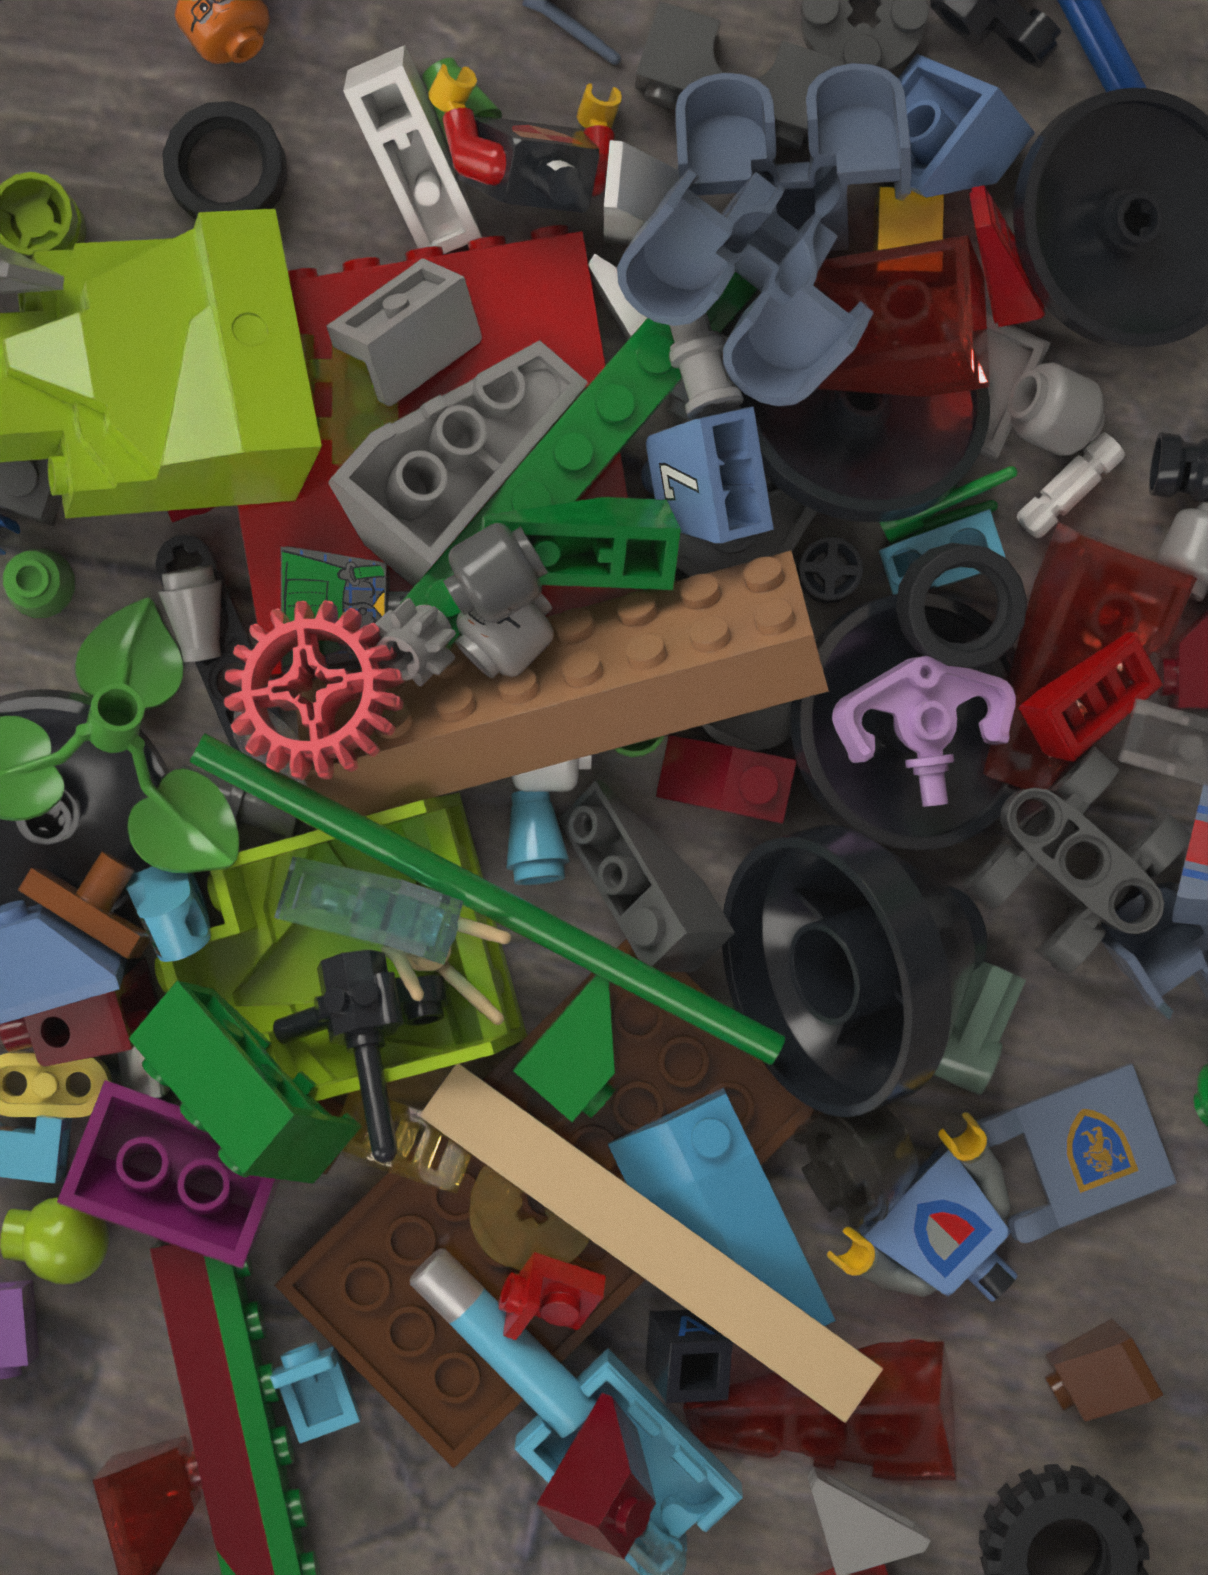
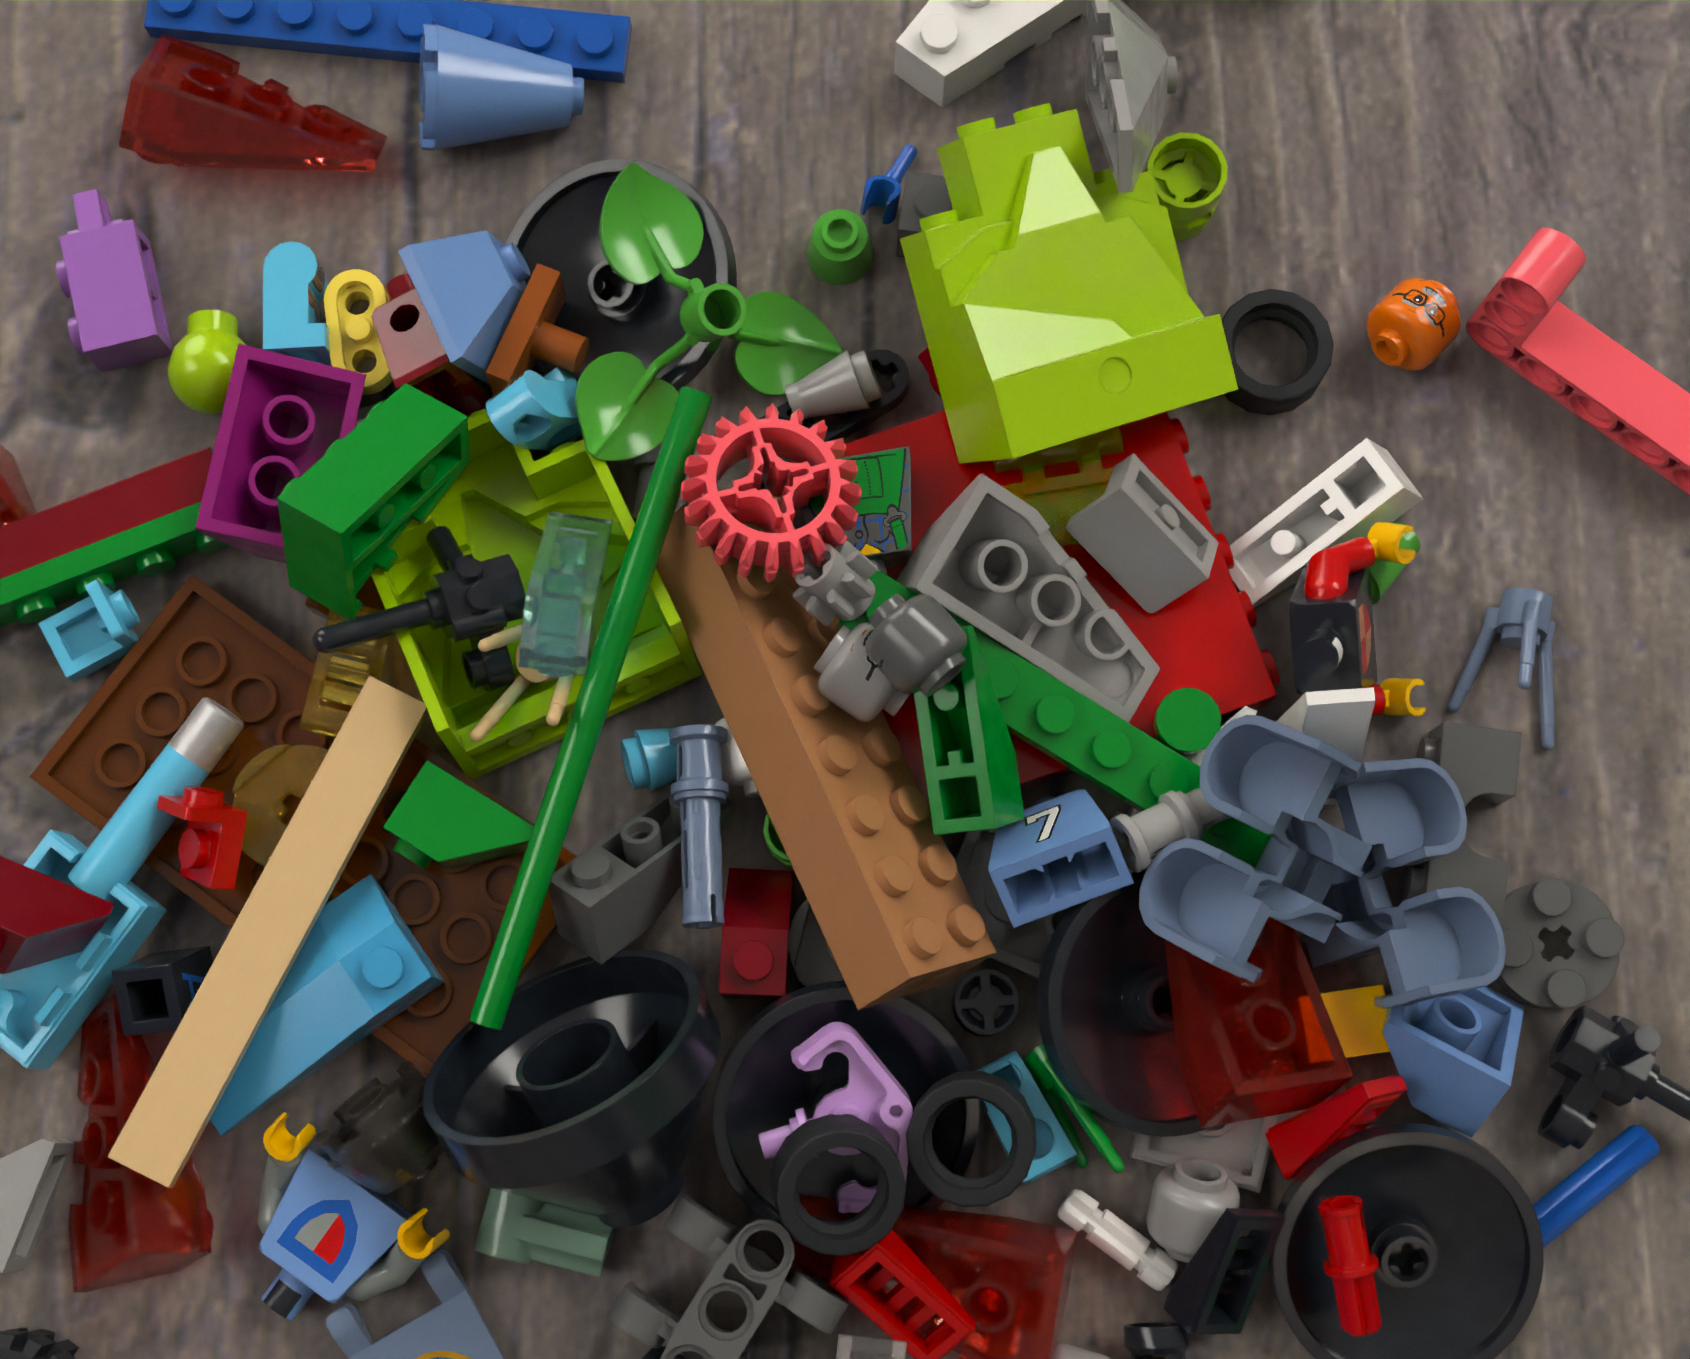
camera: 80 degrees right, 10 degrees down
(588, 811) = (699, 795): none -> sand blue pin
(596, 324) = (1187, 721): none -> green piece
(1030, 727) = (853, 1233): none -> black tyre
(1122, 390) = (1221, 1286): none -> black slope
(1135, 271) = (1351, 1264): none -> red axle

